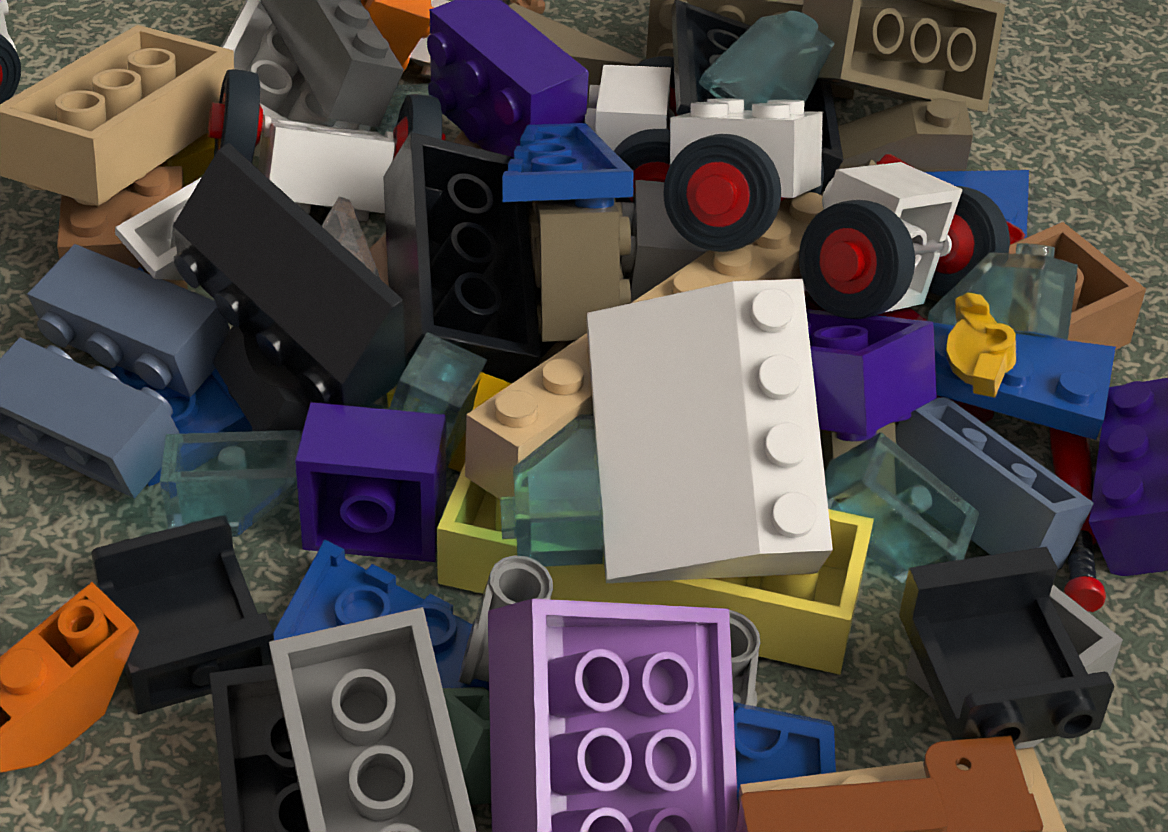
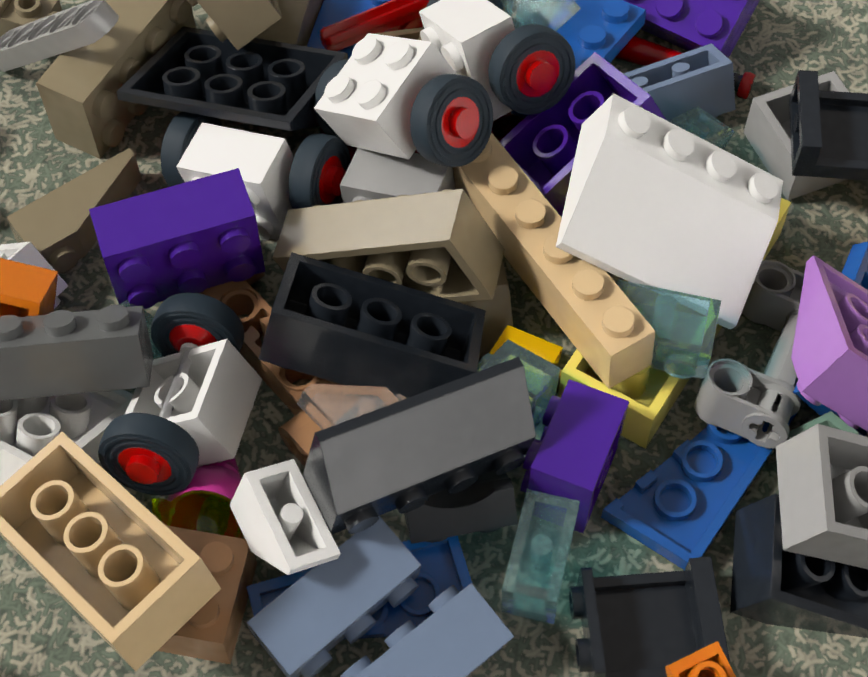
camera: 70 degrees left, 15 degrees up
(566, 165) = (371, 214): blue wing -> none
(770, 61) = (255, 53): clear light blue slope -> none
(979, 346) = (590, 37): yellow piece -> none

